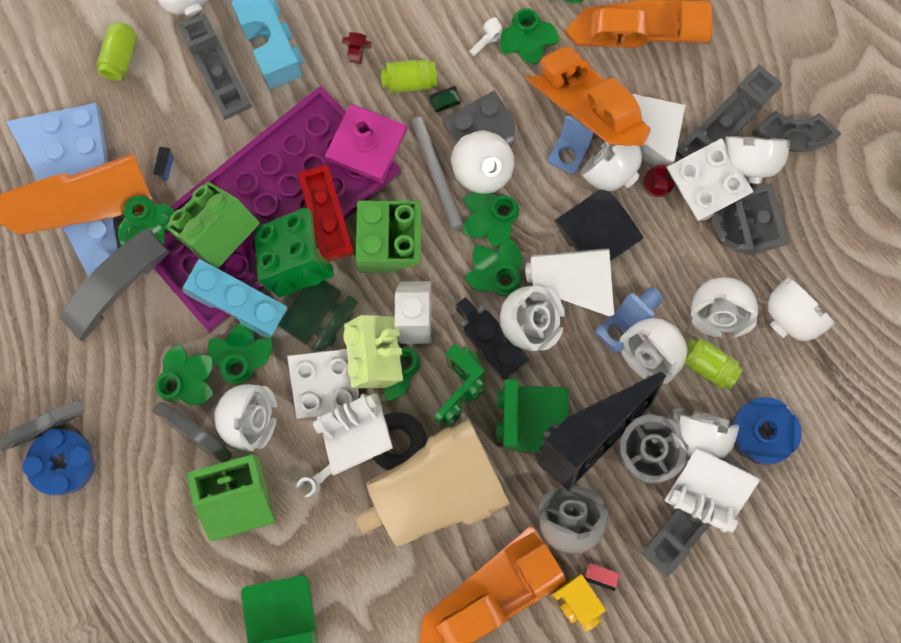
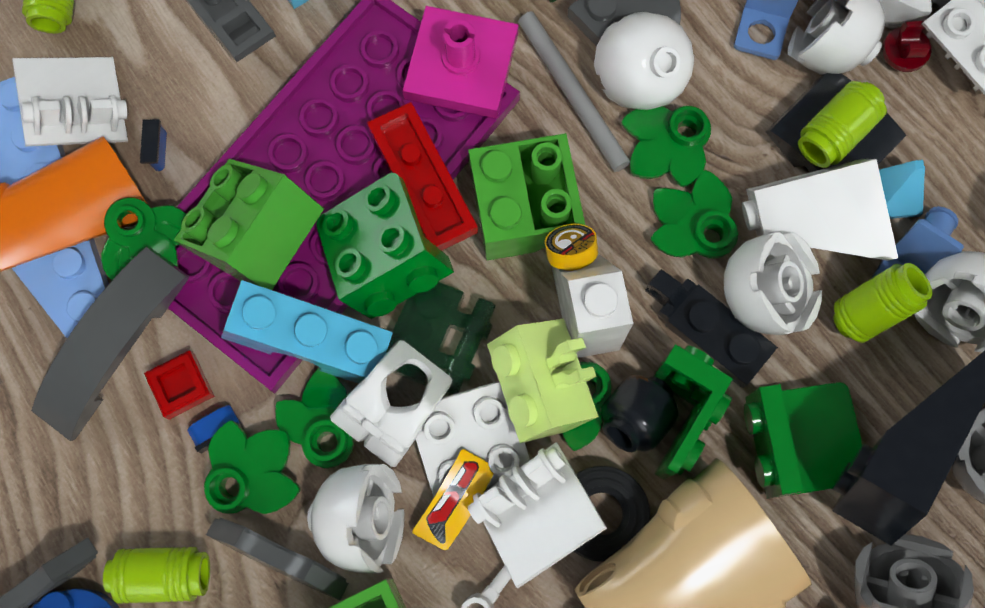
camera: 10 degrees left, 0 degrees up
(116, 127) = (69, 100): none -> white hinge
(118, 430) = (157, 575): none -> lime head
(152, 317) = (179, 385): none -> red tile
(162, 347) = (205, 428): none -> blue piece
(271, 364) = (387, 428): none -> white piece
(300, 425) = (449, 509): none -> sticker
(407, 273) = (571, 247): none -> tile
(432, 384) = (639, 413): none -> black head
(597, 341) = (882, 302): none -> lime head
(598, 224) = (842, 123): none -> lime head
(629, 273) = (904, 189): none -> medium azure slope

